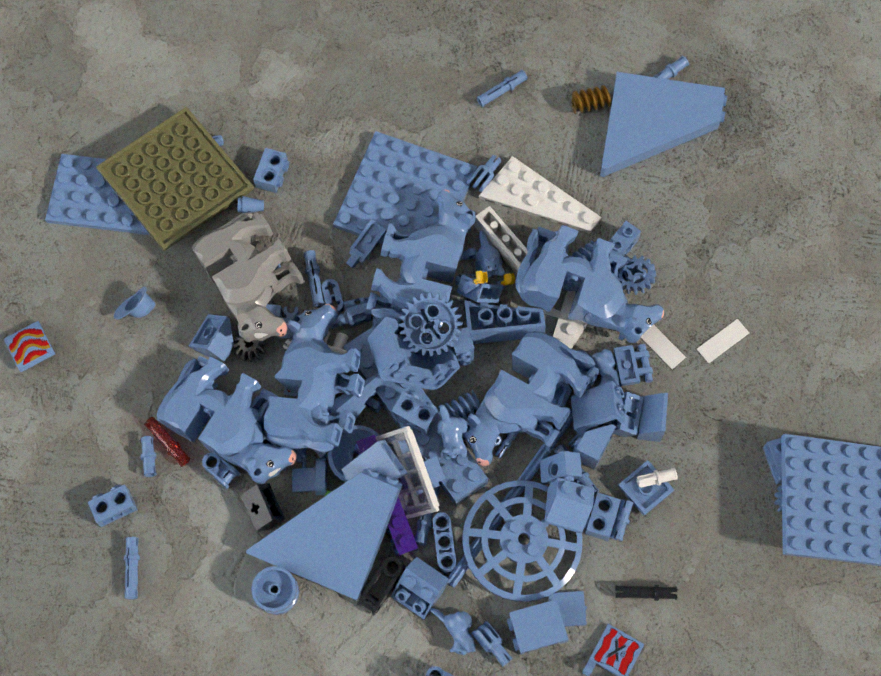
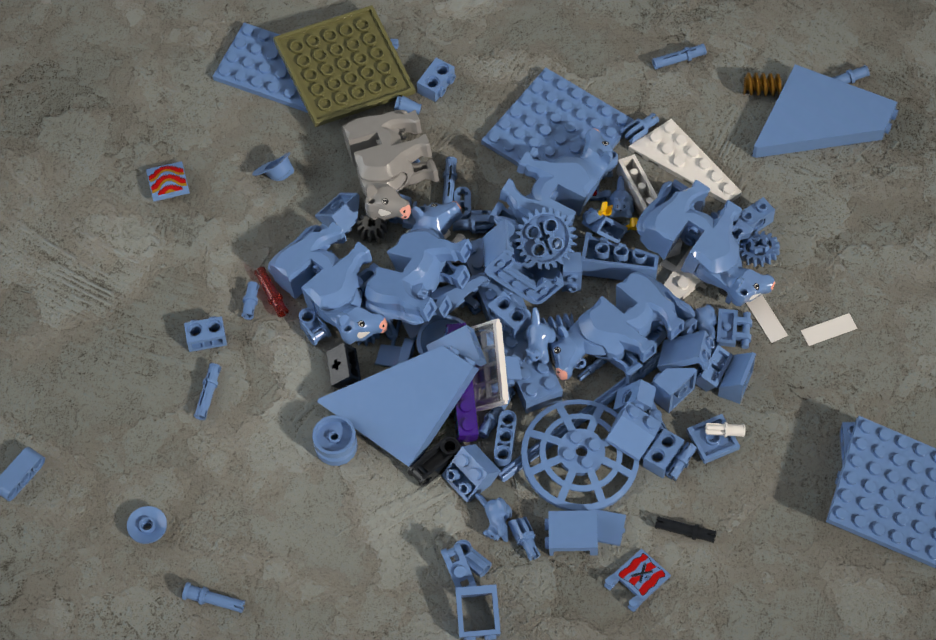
camera: 15 degrees right, 10 degrees down
(366, 242) = (506, 162): medium blue hinge -> none

